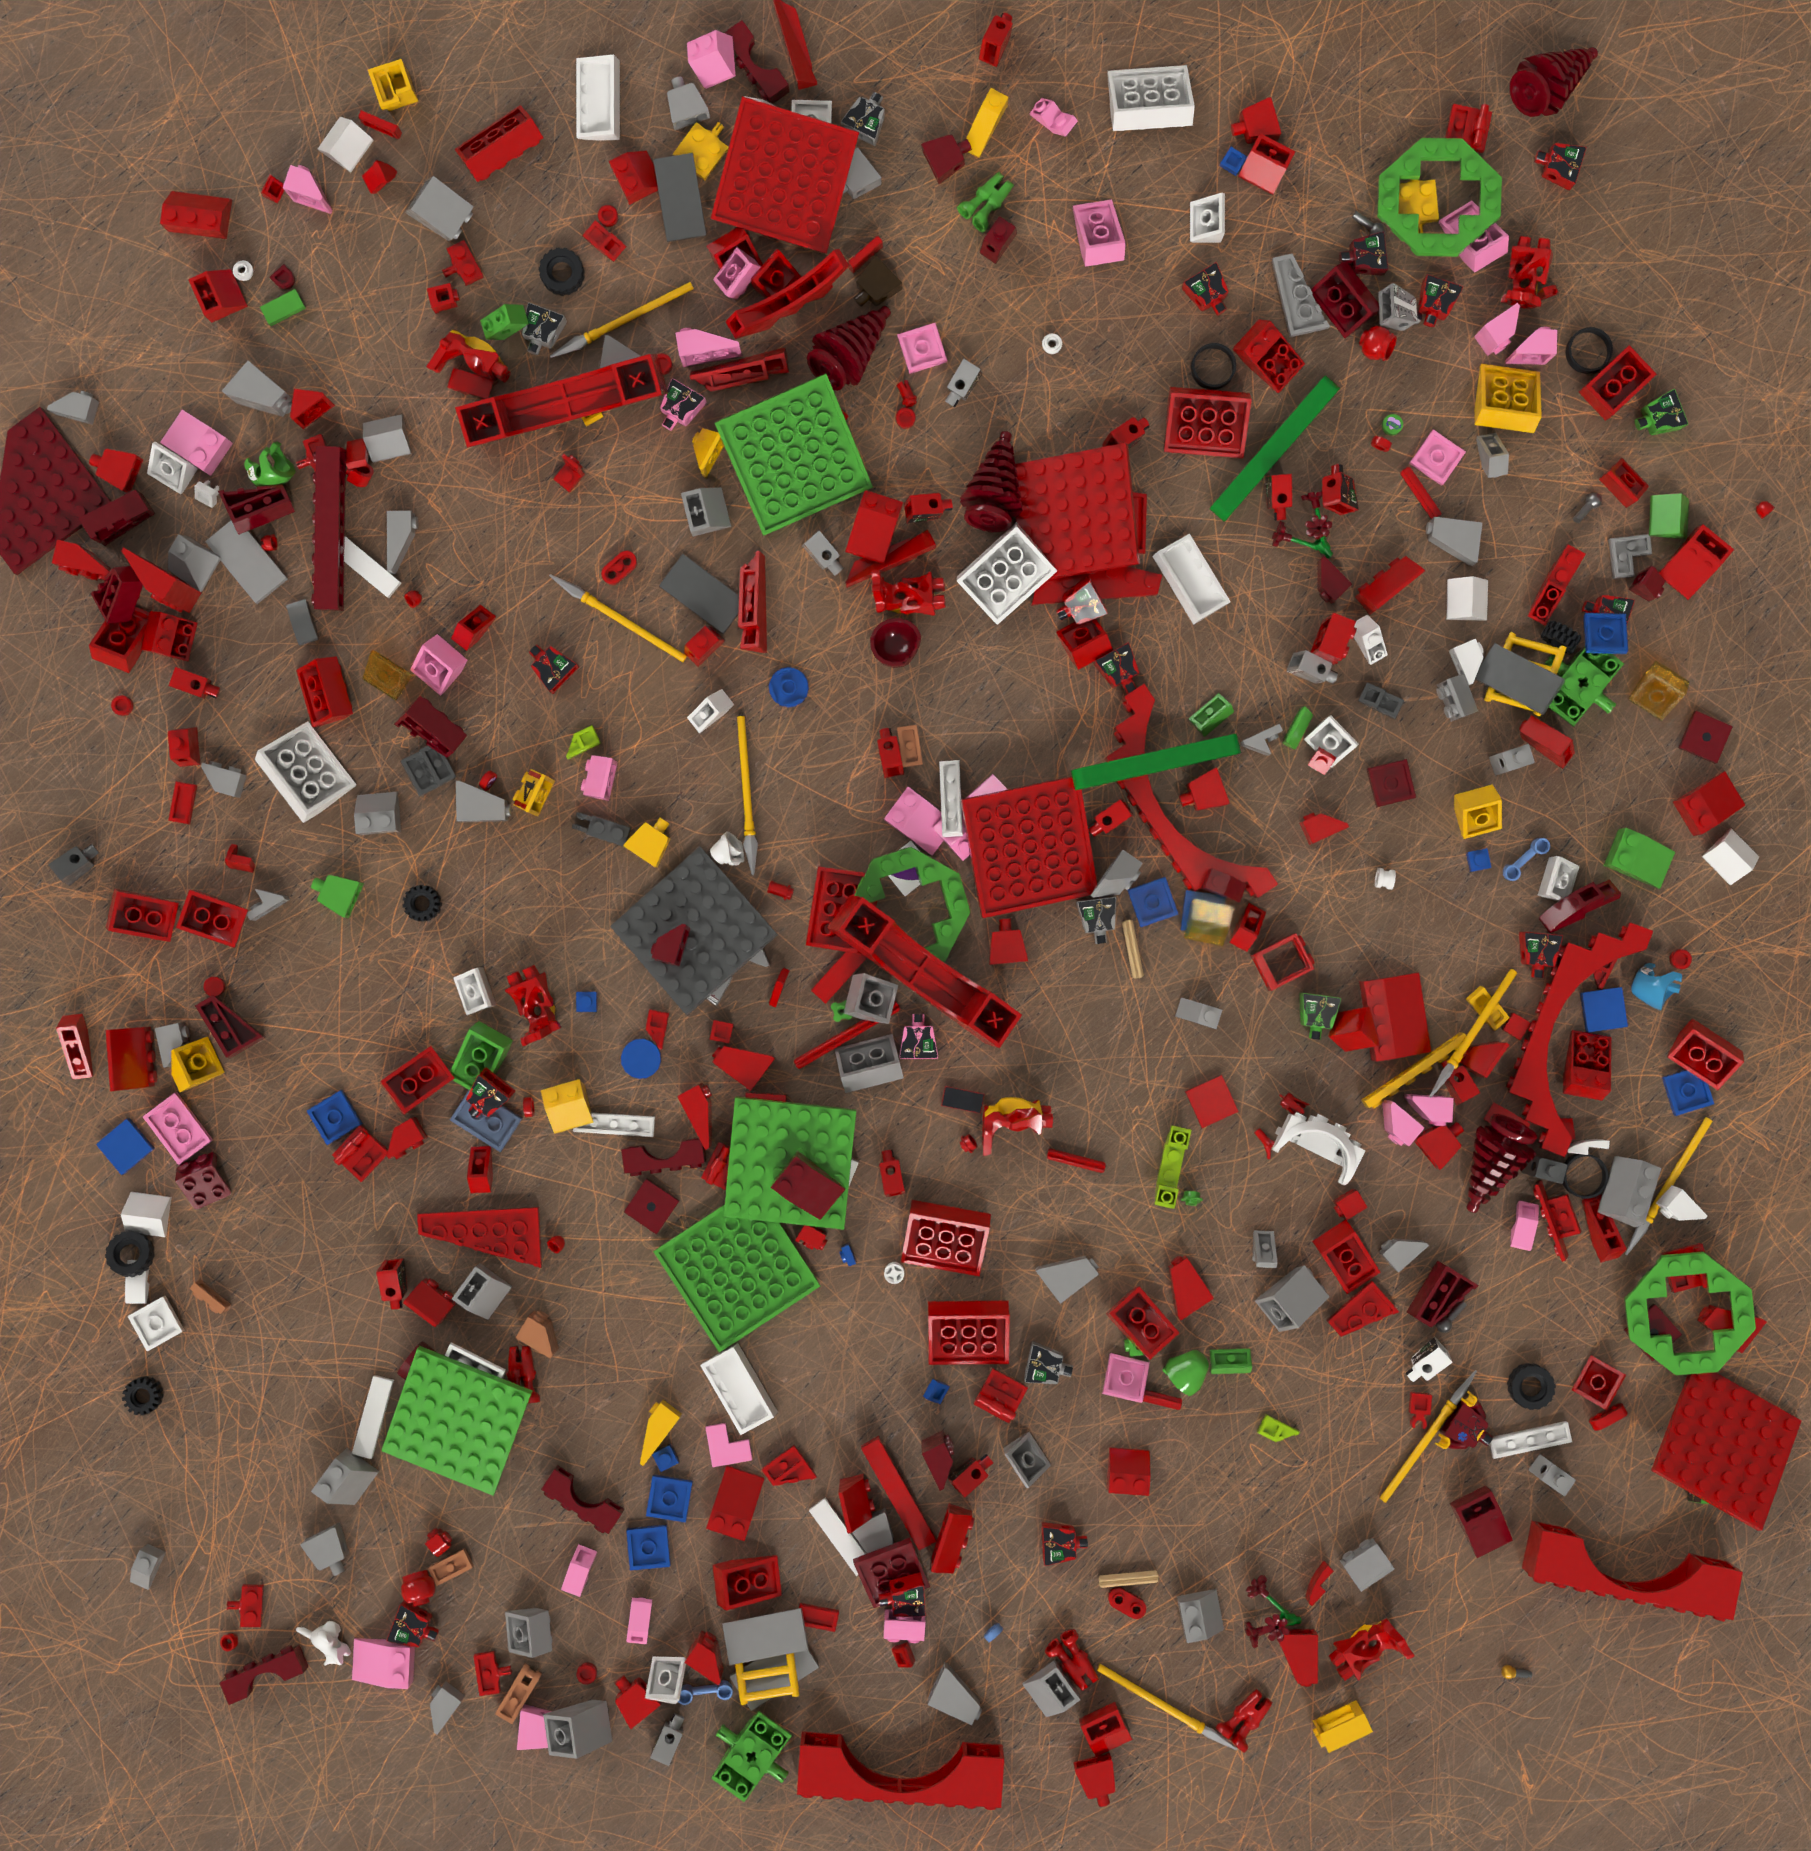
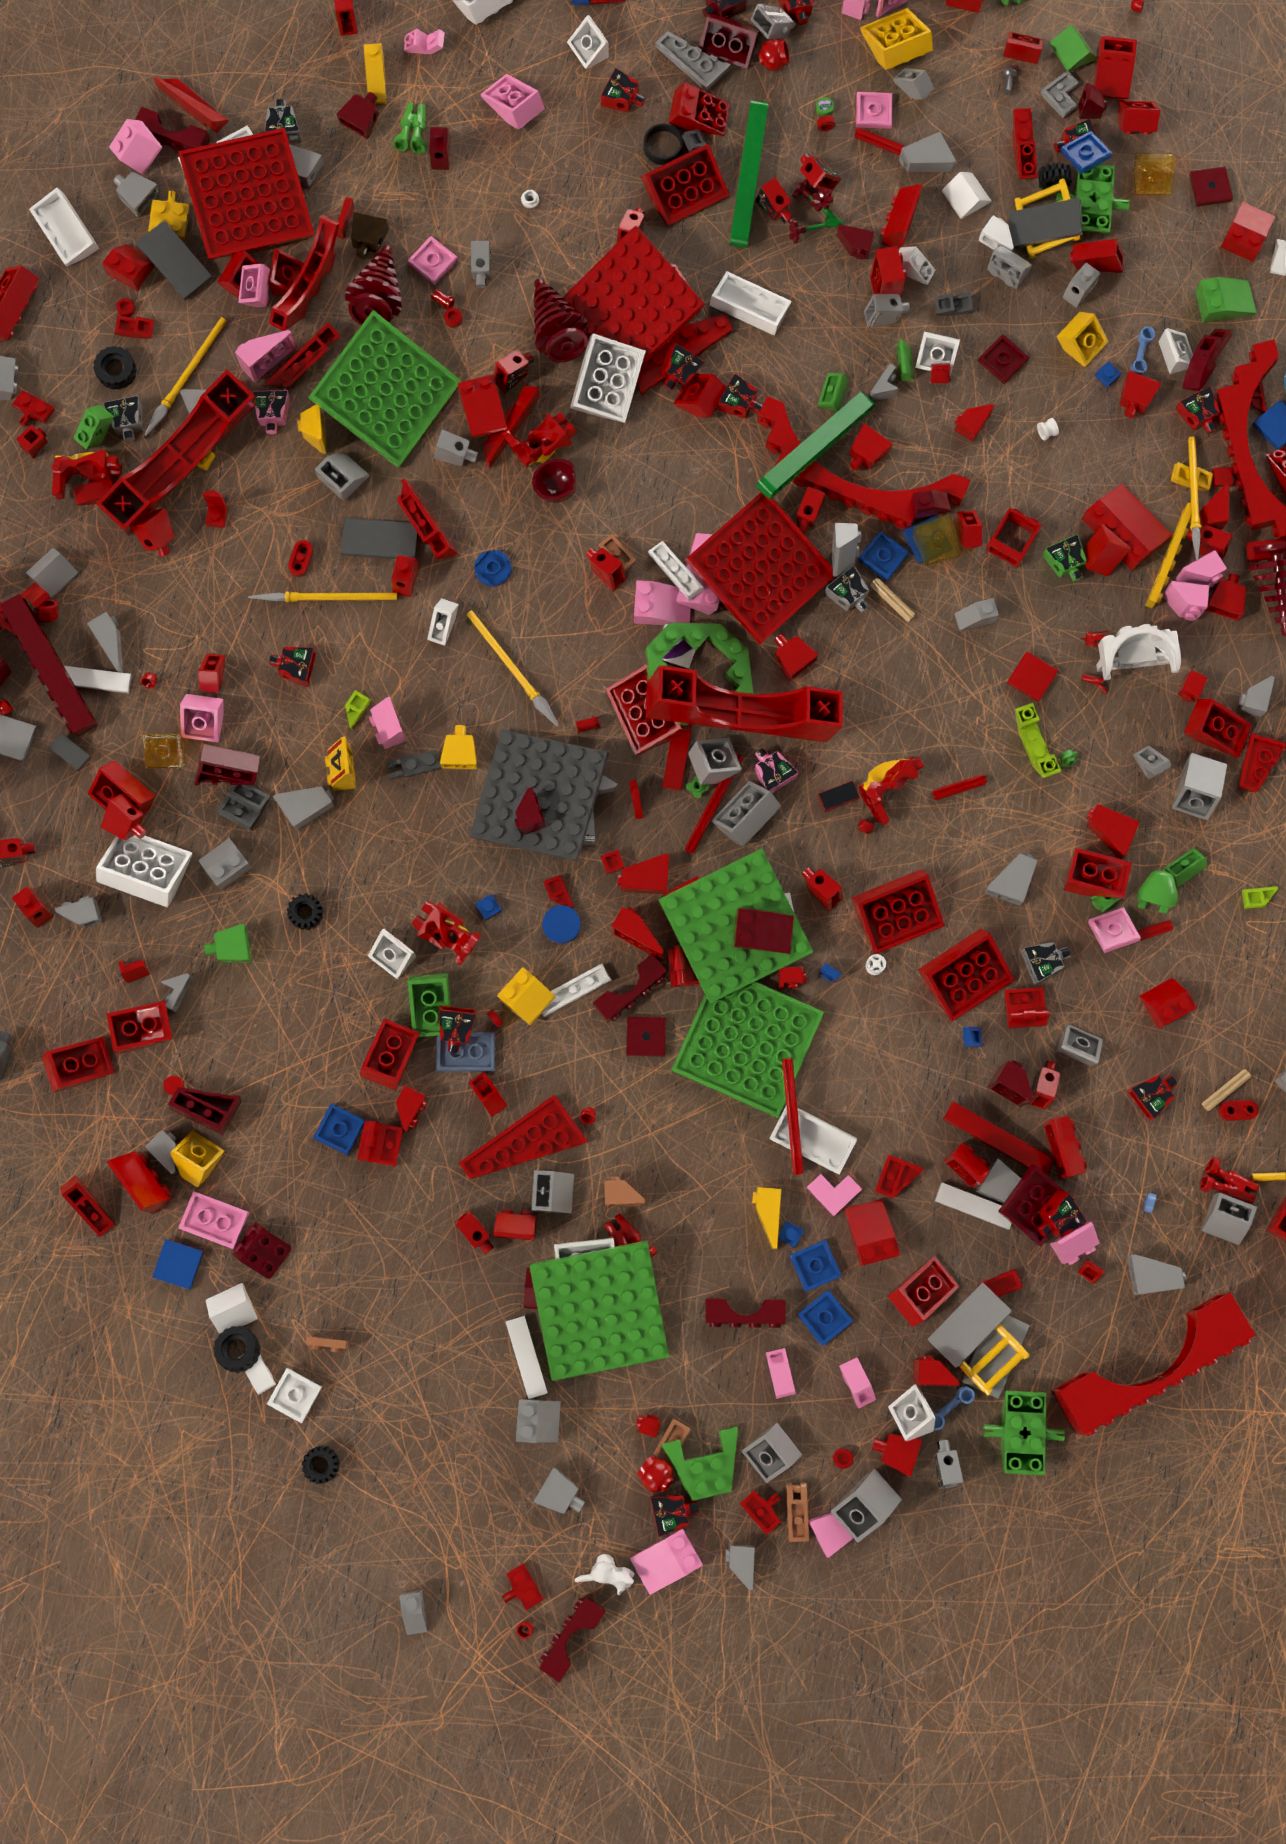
camera: 30 degrees left, 10 degrees down
(182, 802) = (57, 954): red tile -> none
(310, 718) = (123, 818): none -> red torso
(462, 1613) = (705, 1474): none -> bright green wing
(487, 780) = (298, 781): red tile -> none
(500, 460) = (154, 531): none -> red torso
(727, 848) = (525, 717): white piece -> none
(731, 1361) = (792, 1114): none -> red axle
(1244, 382) = (693, 139): none -> dark grey plate
(1491, 897) = (1137, 393): none -> red torso
(1684, 624) = (1138, 116): none -> red slope

